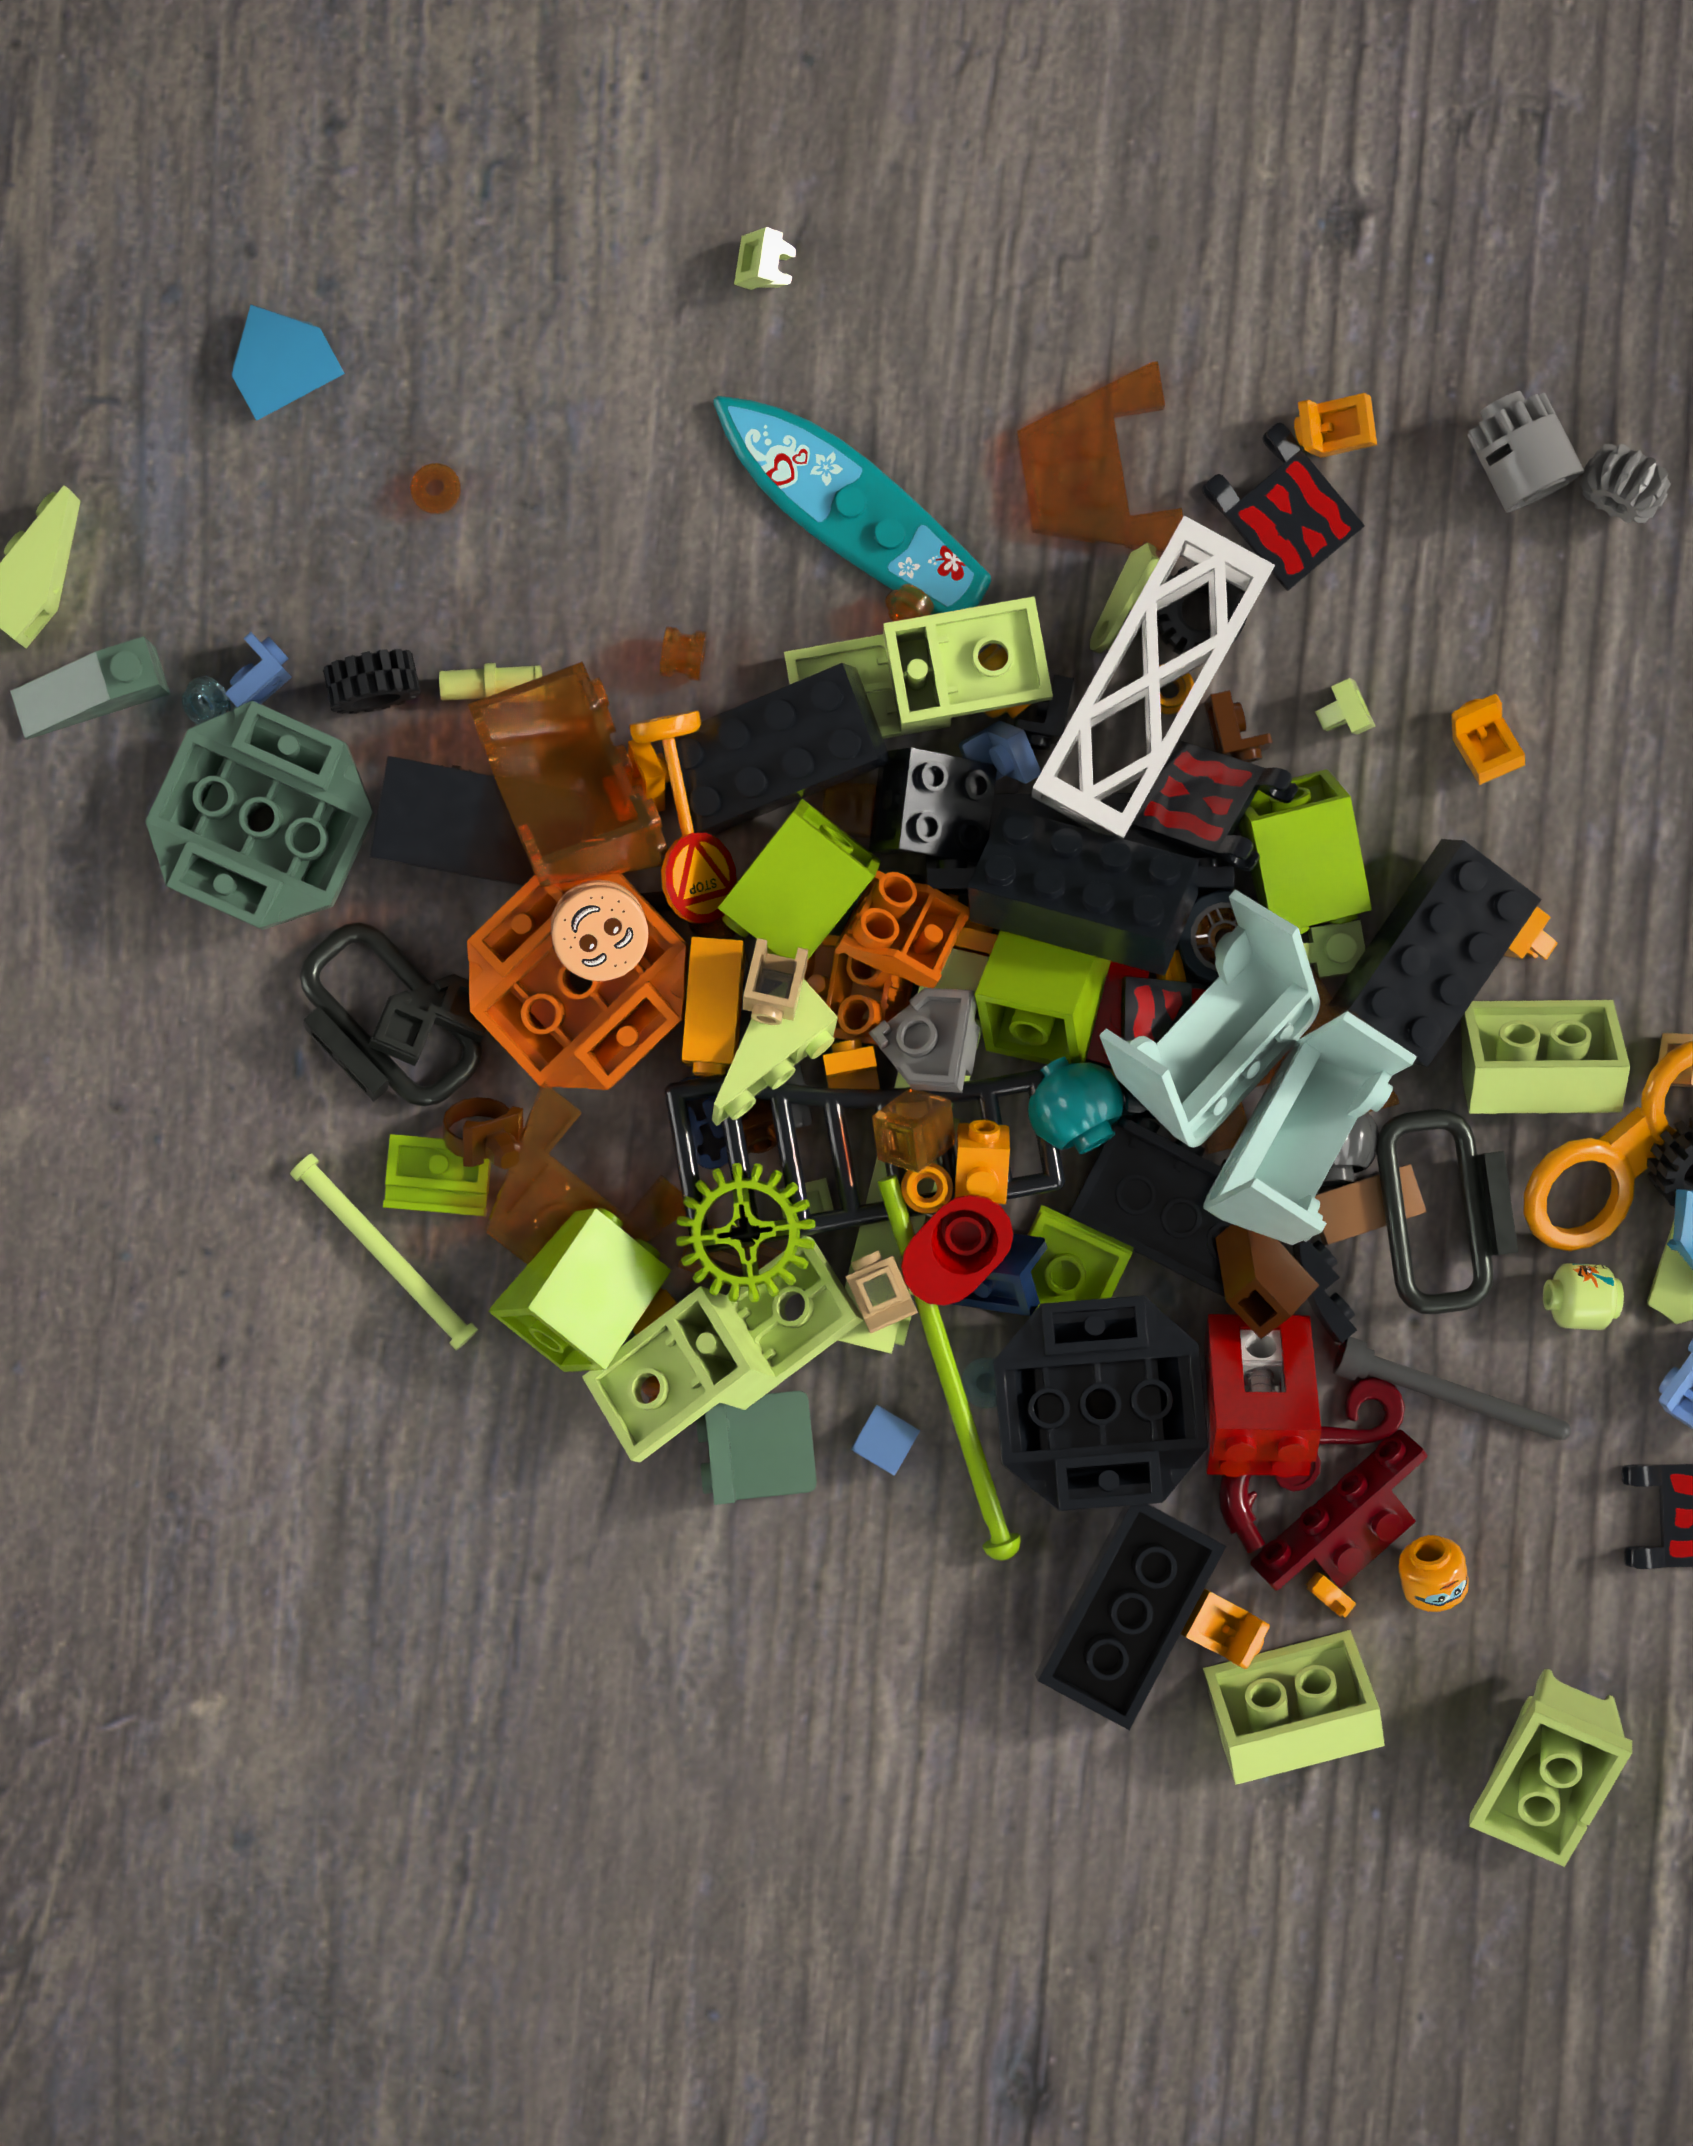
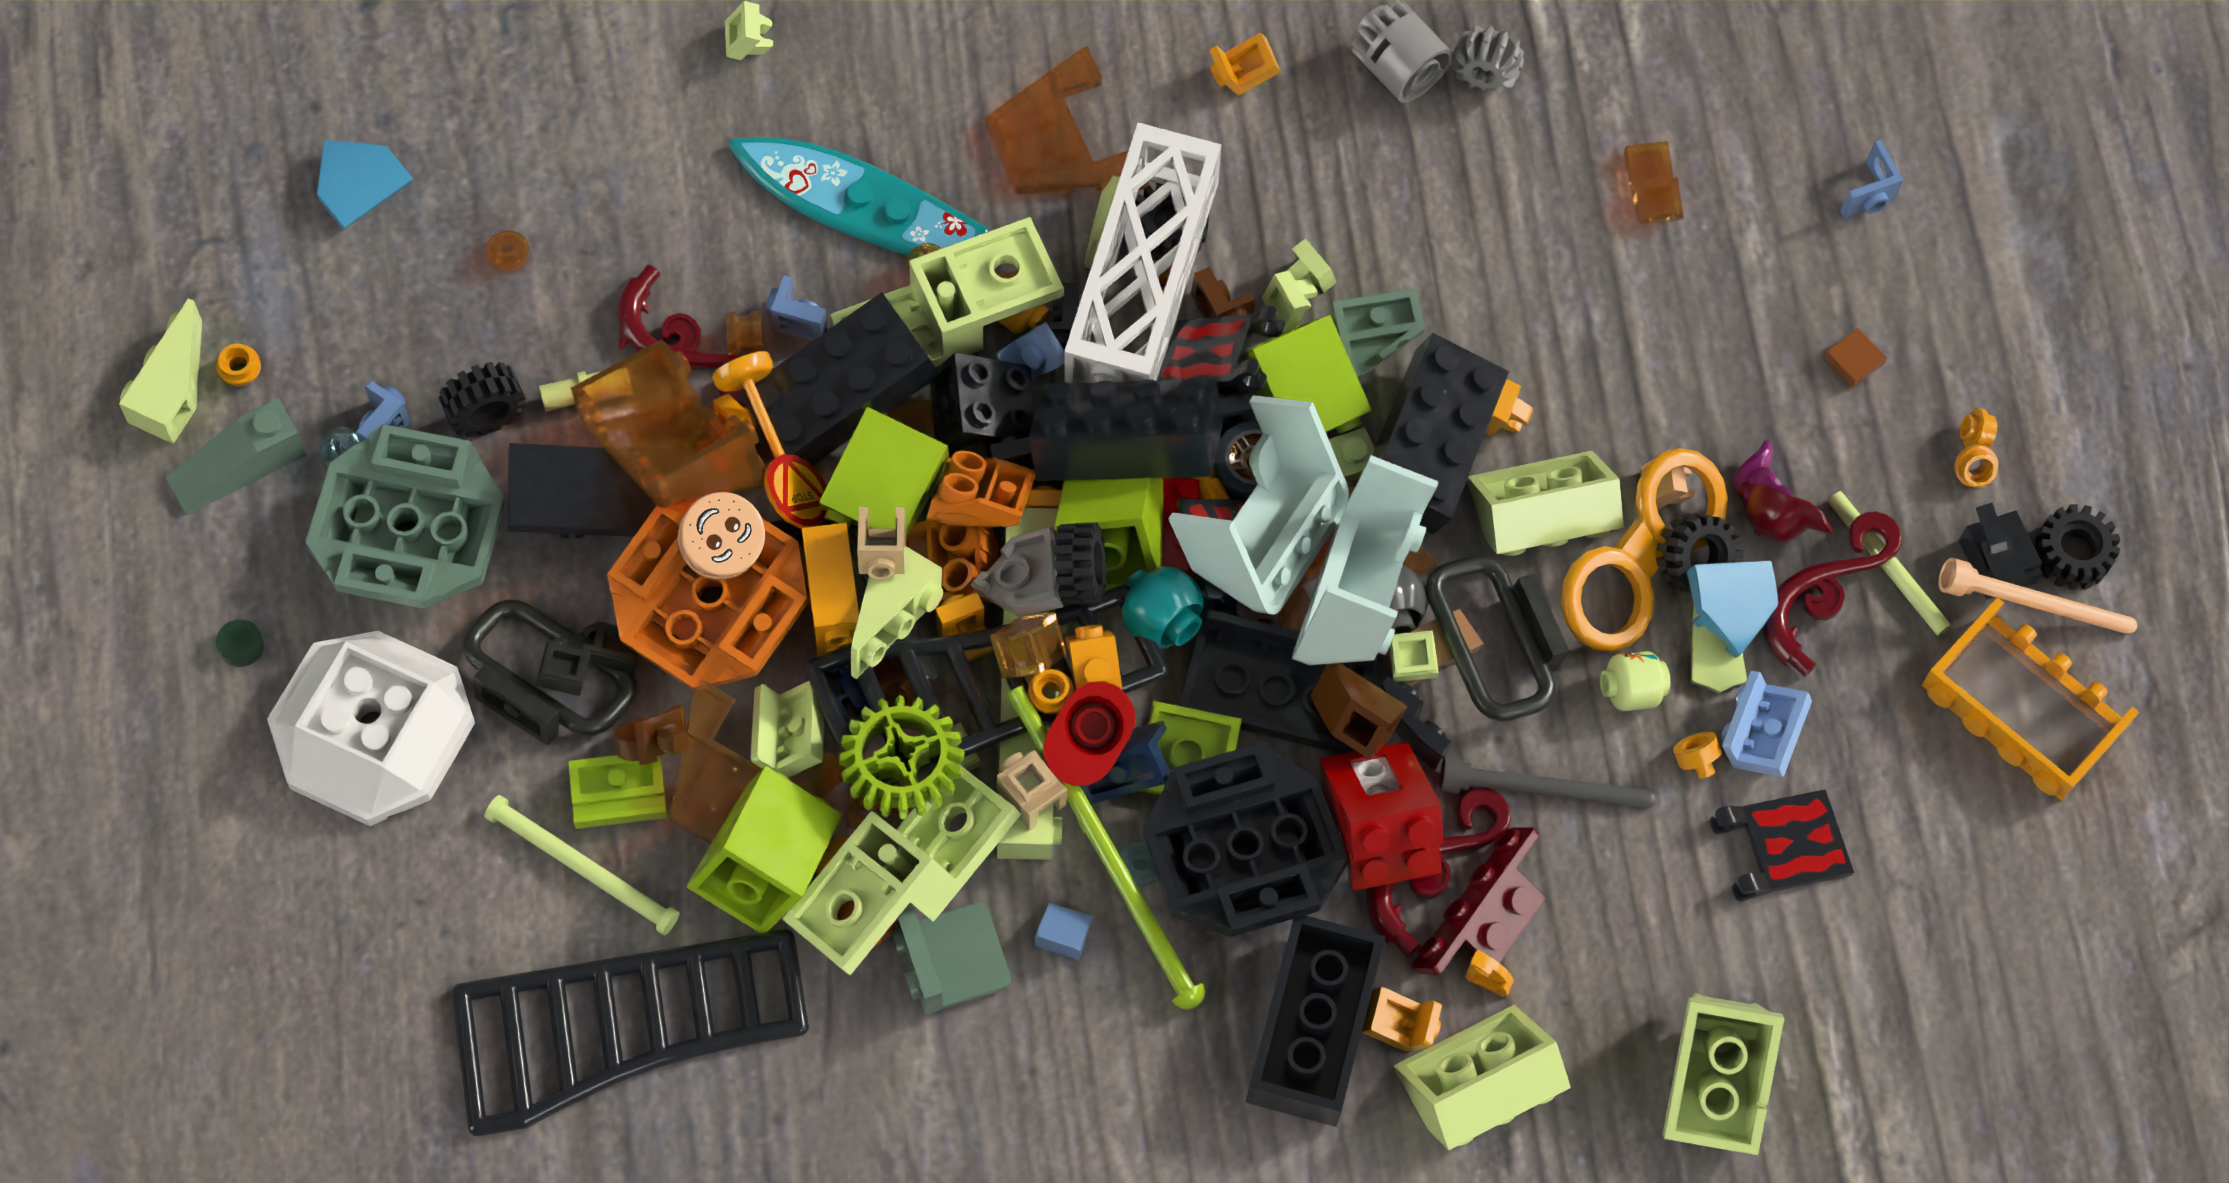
camera: 20 degrees left, 20 degrees down
(61, 909) = (240, 643): none -> clear green tile
(103, 557) = (234, 355): none -> light orange plate
(239, 1052) = (376, 765): none -> white piece
(378, 1487) = (617, 1070): none -> black bar
(607, 662) = (679, 325): none -> dark red plant
(631, 1153) = (787, 729): none -> yellowish green bracket
(748, 647) = (795, 318): none -> medium blue bracket
(992, 1049) = (1080, 563): none -> black tyre
(1291, 515) = (1244, 136): flag -> none
(1312, 743) = (1289, 297): none -> yellowish green tile
(1345, 1216) = (1413, 656): none -> yellowish green tile
(1404, 798) = (1377, 326): none -> sand green wing
(1433, 1573) = (1572, 932): light orange head -> none
(1486, 739) = (1428, 269): light orange bracket -> none
(1630, 1393) = (1698, 753): none -> light orange tile

